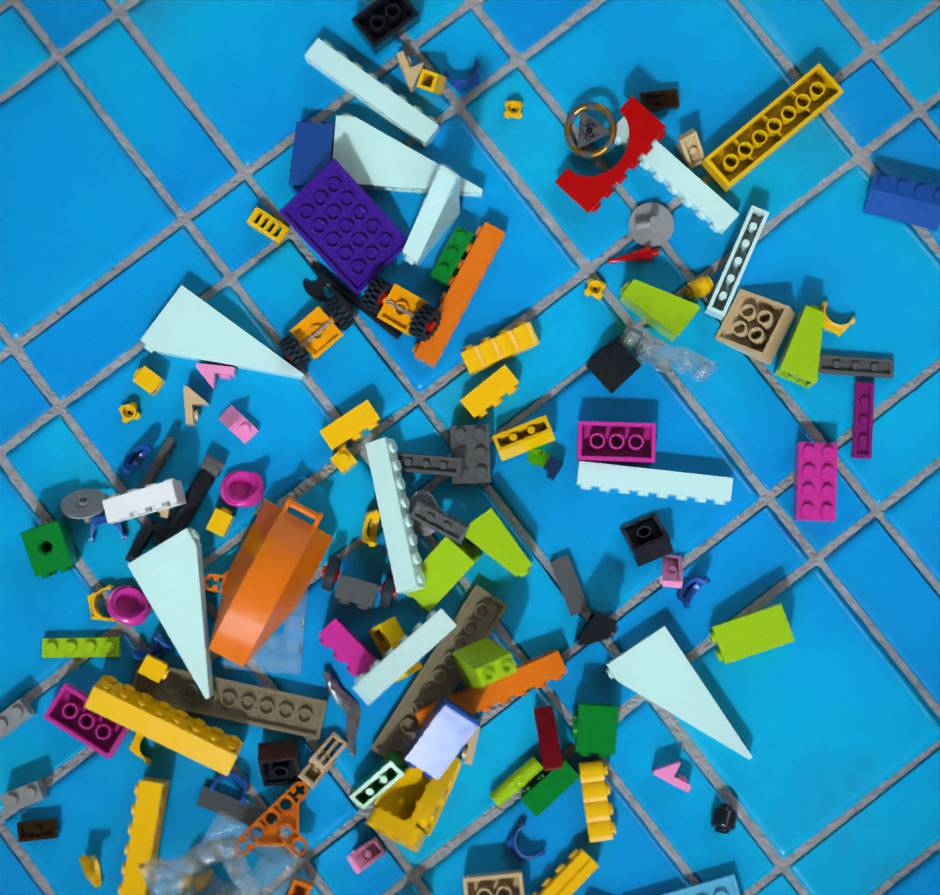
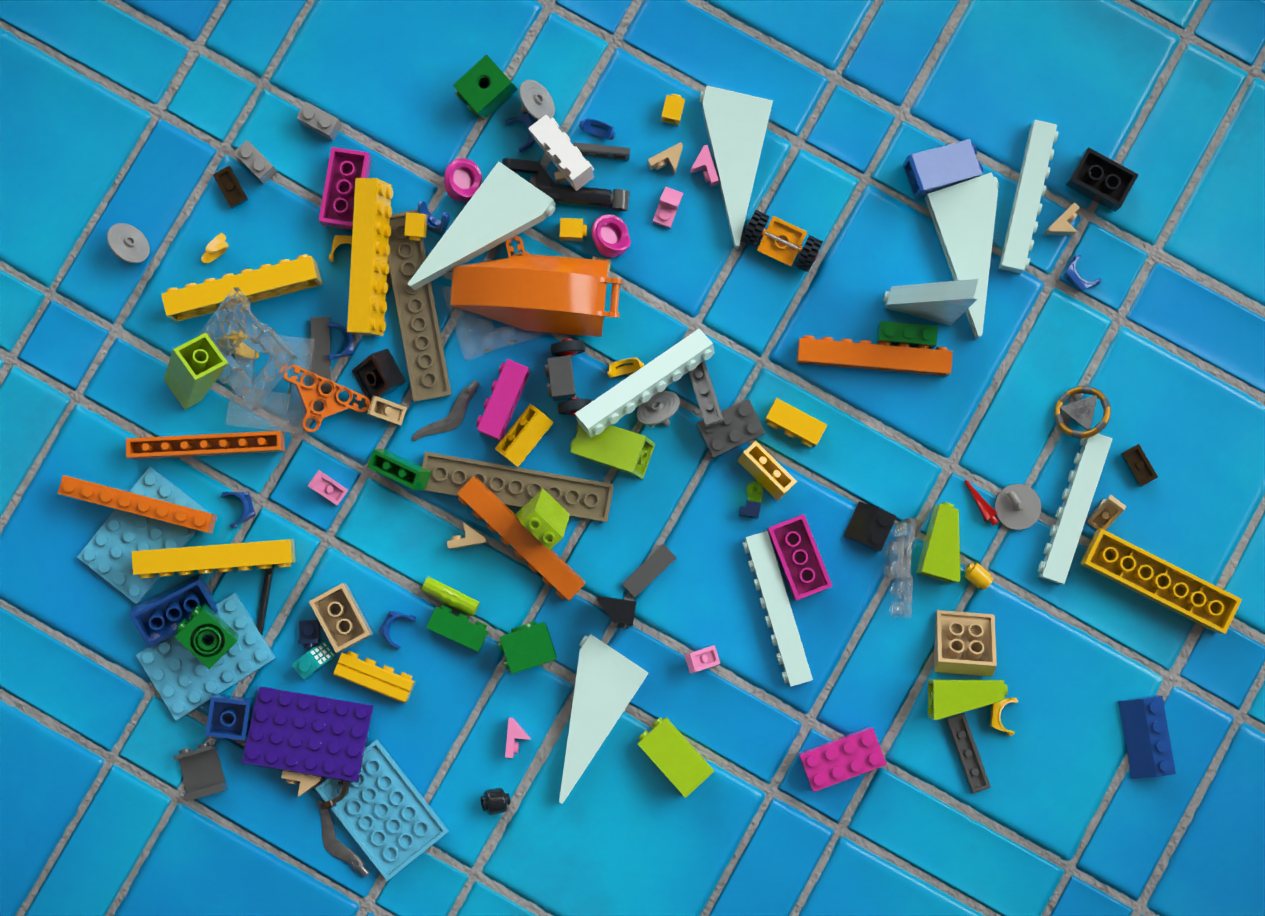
camera: 65 degrees right, 0 degrees up
(81, 647) = (407, 155): lime plate -> none
(93, 605) = (454, 146): yellow helmet -> none
(124, 412) = (636, 100): yellow plate -> none
(257, 211) = (865, 139): yellow slope -> none
(316, 291) = (822, 224): black piece -> none
(318, 763) = (391, 410): tan tile -> none
(344, 226) = (890, 223): dark purple plate -> none
(344, 460) = (675, 316): yellow brick -> none
(350, 426) = (709, 309): yellow brick -> none
(401, 309) = (837, 308): plate -> none
(401, 659) = (519, 444): light aqua brick -> none
(412, 806) = (394, 511): yellow panel -> none
(431, 81) = (1062, 246): yellow brick -> none
(439, 521) = (656, 425): dark grey tile -> none
(440, 738) = (460, 508): slope -> none
(494, 540) = (660, 484): lime slope -> none
(499, 348) = (840, 414): yellow brick -> none
(517, 105) = (1073, 327): yellow plate -> none
(548, 738) = (501, 608): dark red slope -> none
(596, 801) = (462, 676): yellow brick -> none
(599, 286) = (938, 475): yellow plate -> none
(643, 132) = (1100, 461): red arch -> none
(646, 539) = (721, 624): black slope -> none
(698, 581) = (693, 686): blue helmet -> none
(736, 262) = (1017, 600): light aqua brick -> none
(862, 420) = (920, 781): magenta tile -> none

